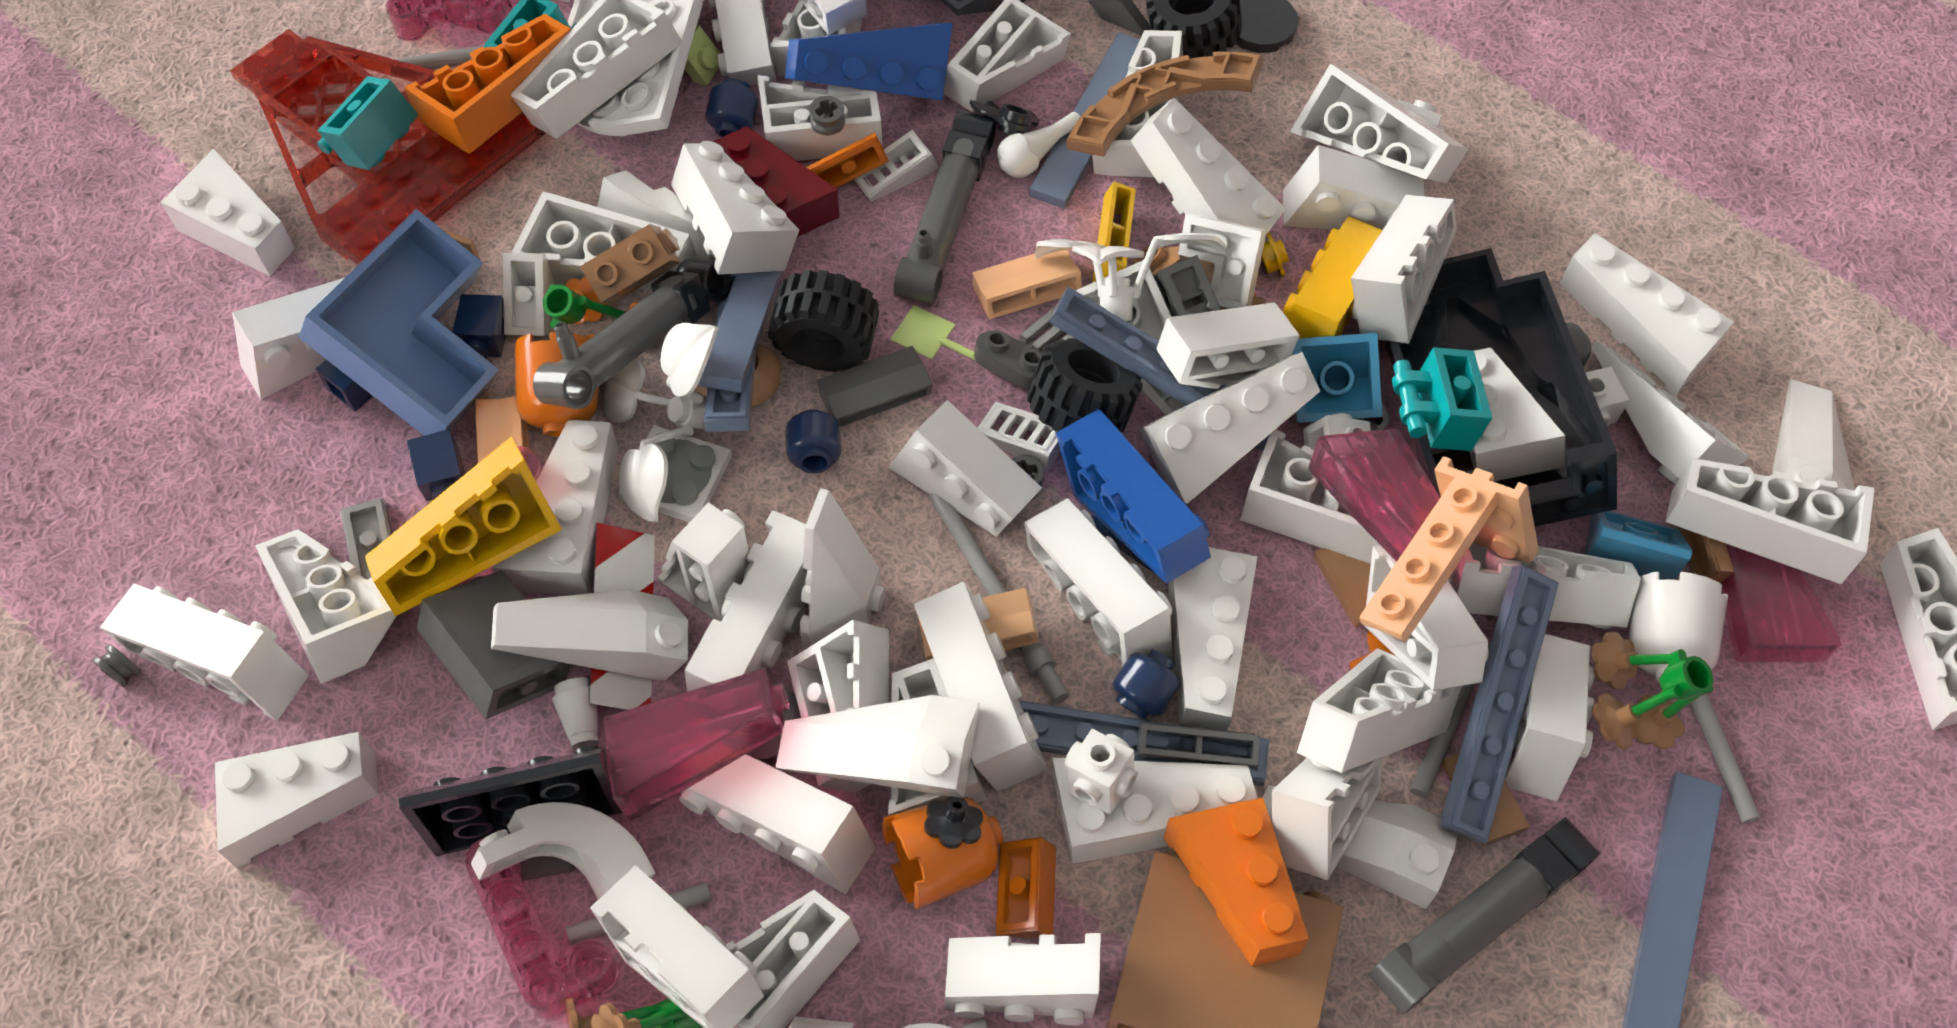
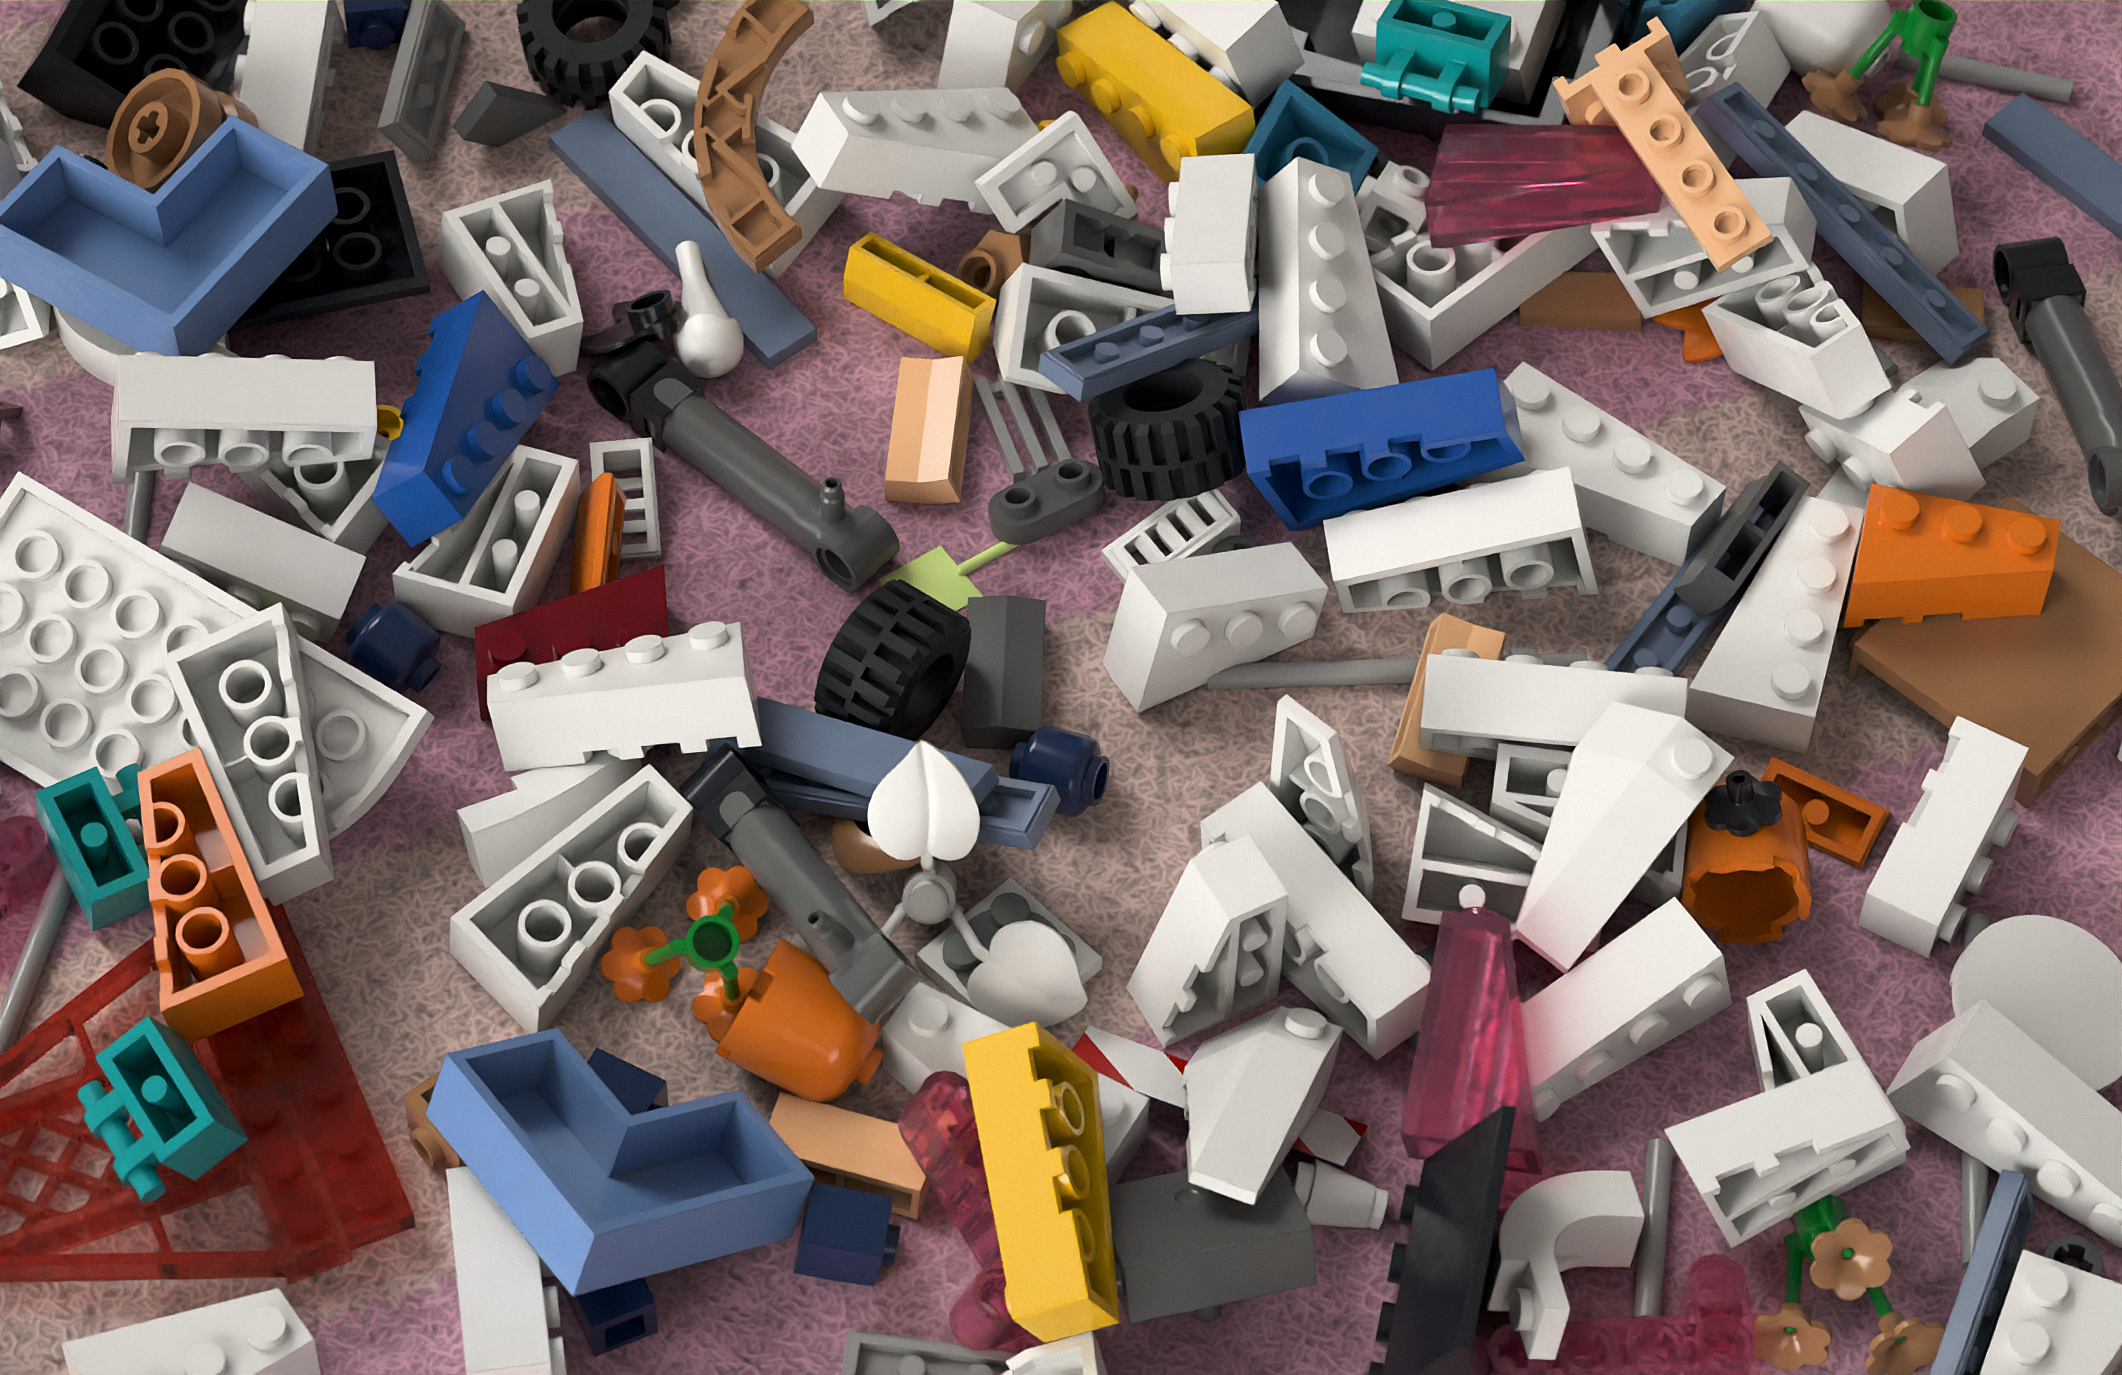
camera: 65 degrees left, 5 degrees down
(524, 287) = (602, 1016): white slope -> none
(631, 263) = (674, 844): medium nougat brick -> none
(824, 125) = (538, 496): dark grey bush -> none
(1101, 770) = (1755, 627): white brick -> none
(1116, 292) = (1058, 313): white plant -> none
(1146, 684) = (1627, 560): dark blue head -> none

